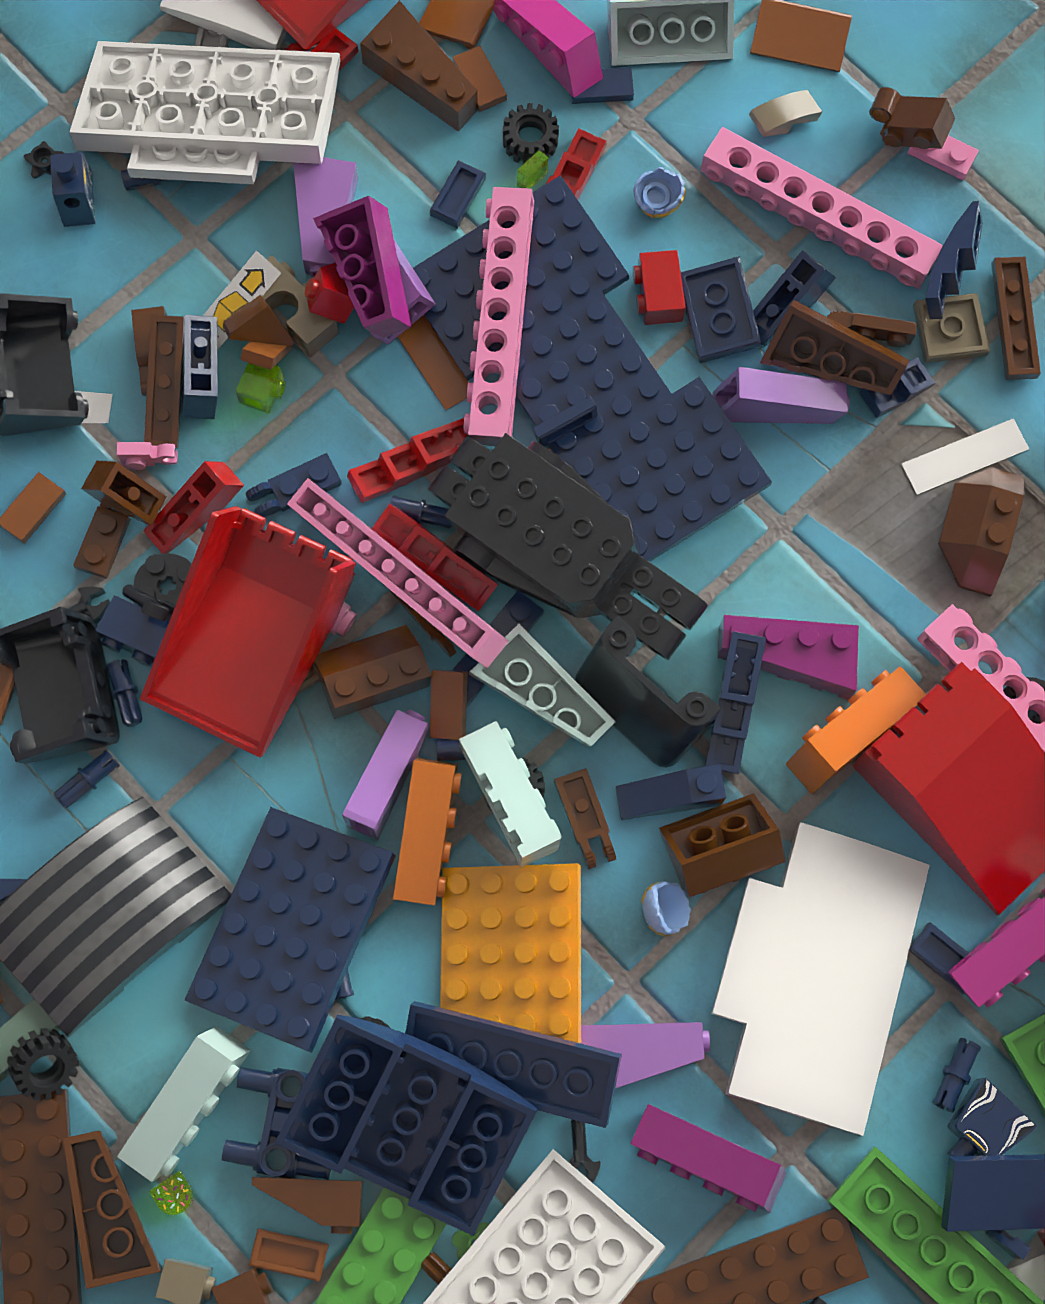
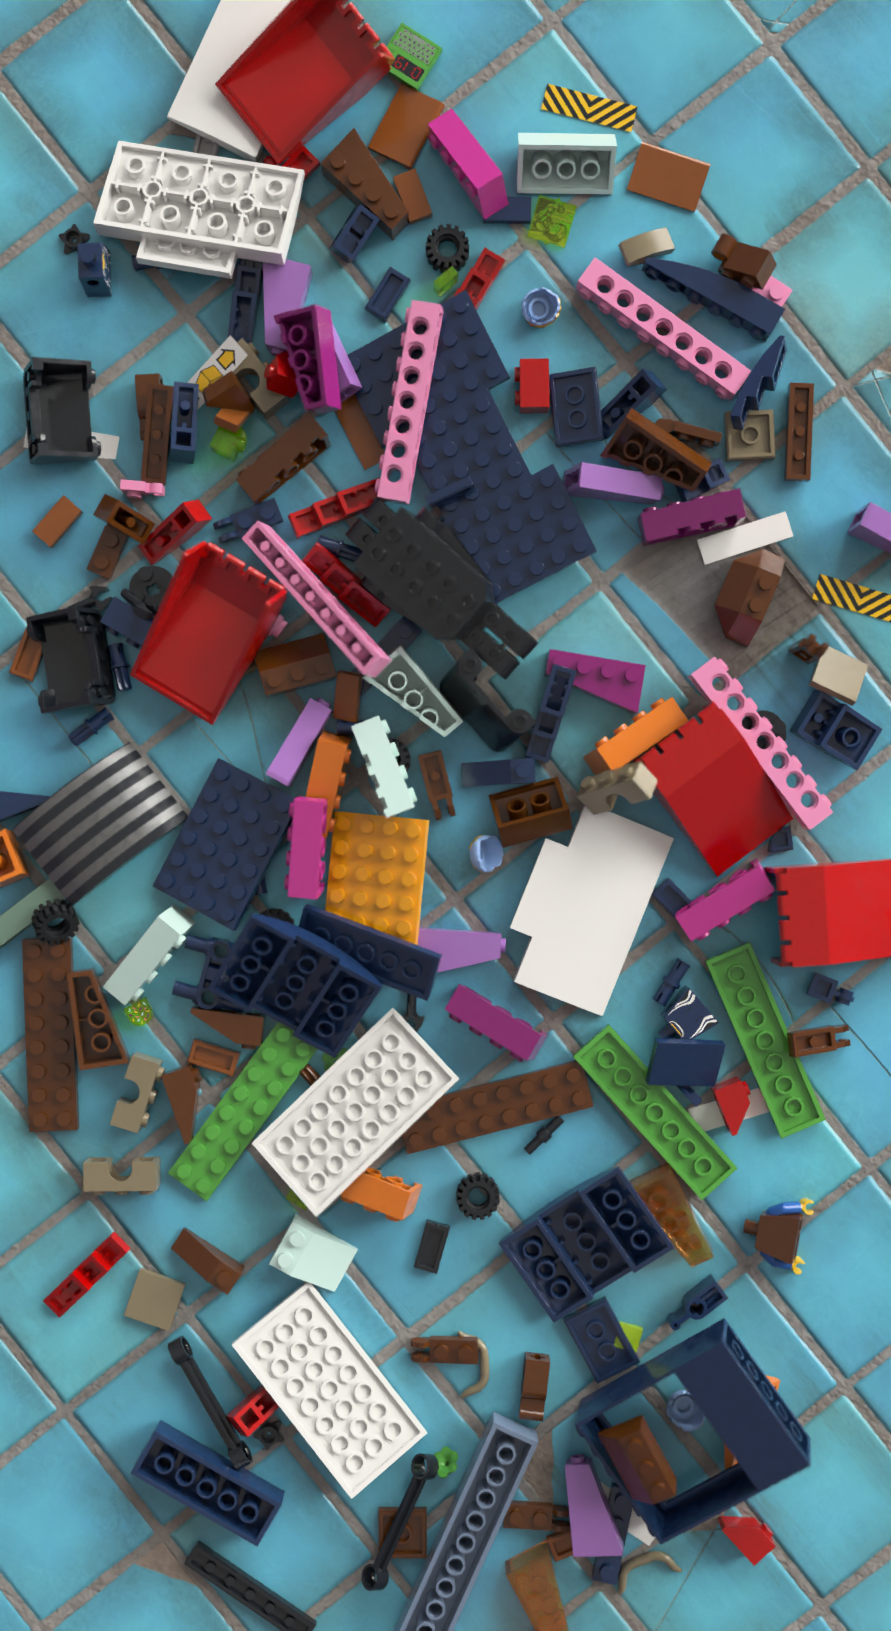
camera: 10 degrees right, 15 degrees up
(273, 209) = (245, 300): none -> dark blue slope
(338, 400) = (284, 459): none -> reddish brown wedge
(408, 917) = (306, 848): none -> dark pink wedge
(409, 123) = (354, 233): none -> dark blue brick
(660, 95) = (552, 221): none -> clear neon green piece
(863, 776) = (630, 781): none -> dark tan arch
(885, 161) = (719, 294): none -> dark blue slope
(893, 431) = (692, 517): none -> magenta wedge

